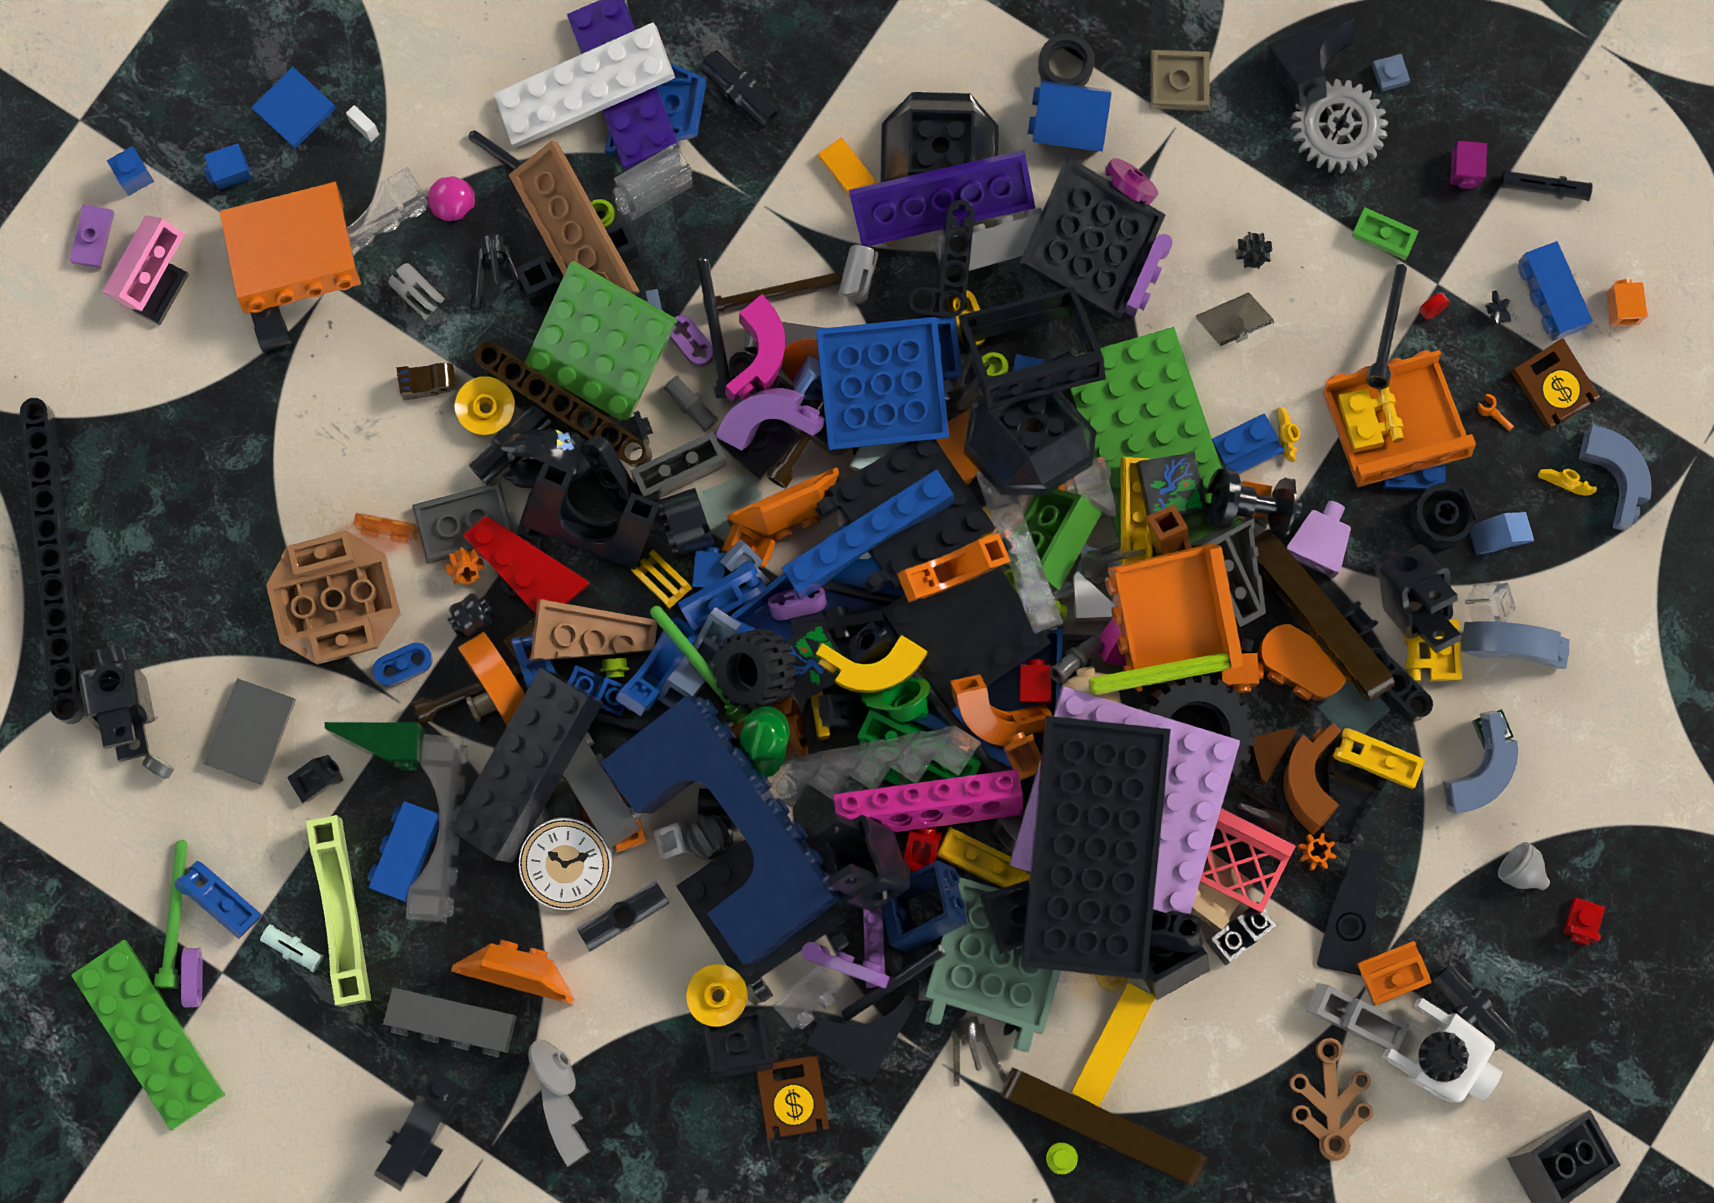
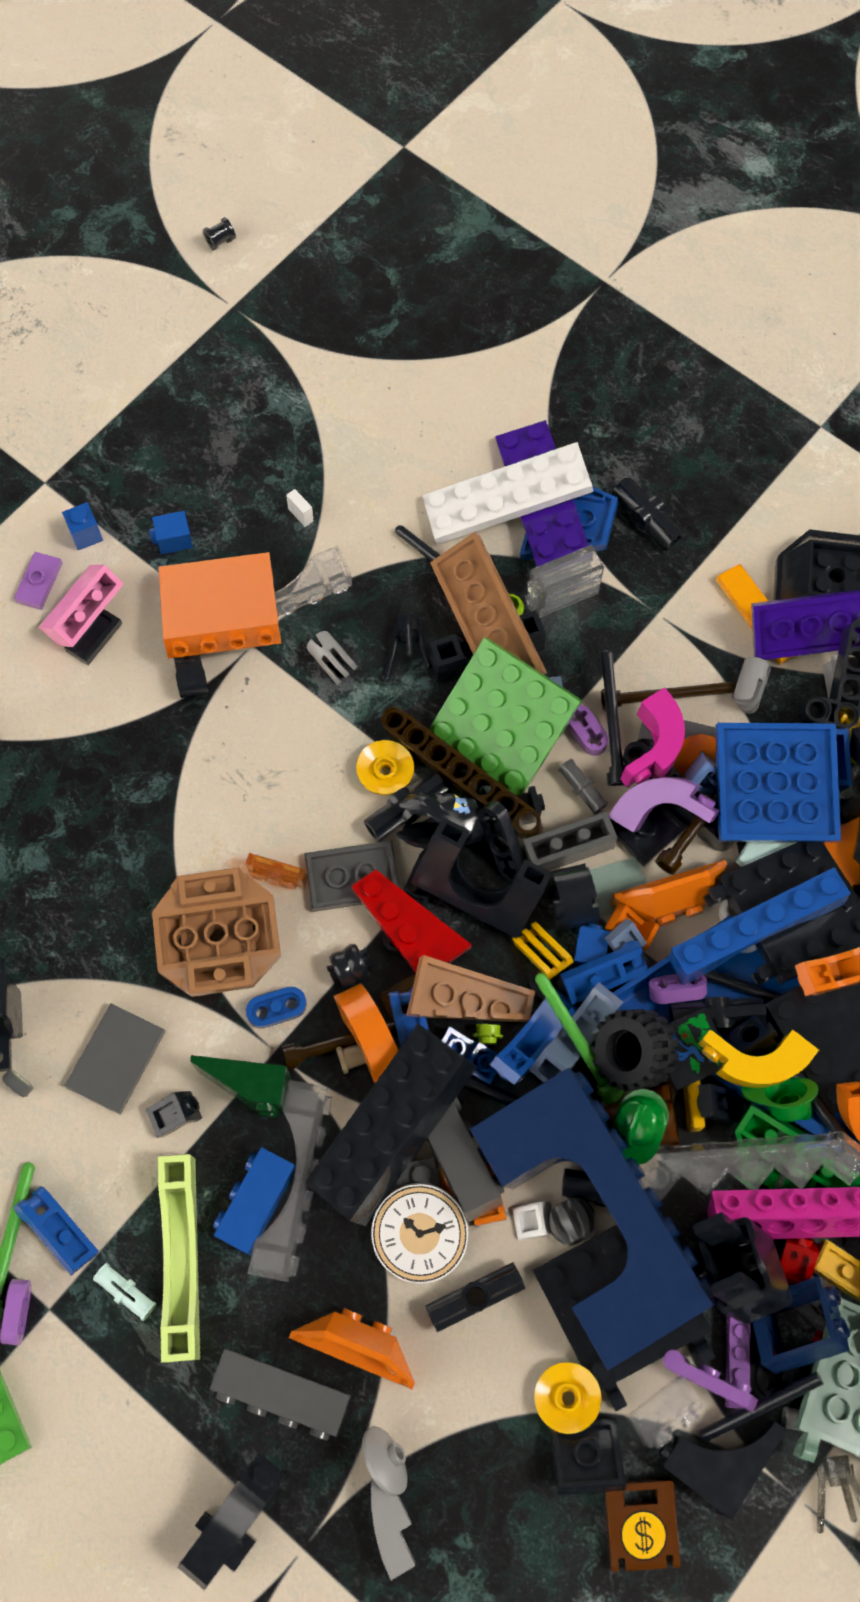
camera: 10 degrees right, 10 degrees down
(293, 107) = (239, 490): blue tile -> none
(426, 380) = (331, 738): dark brown leg -> none
(450, 198) = (372, 580): dark pink hair -> none
(464, 566) = (349, 917): orange gear -> none

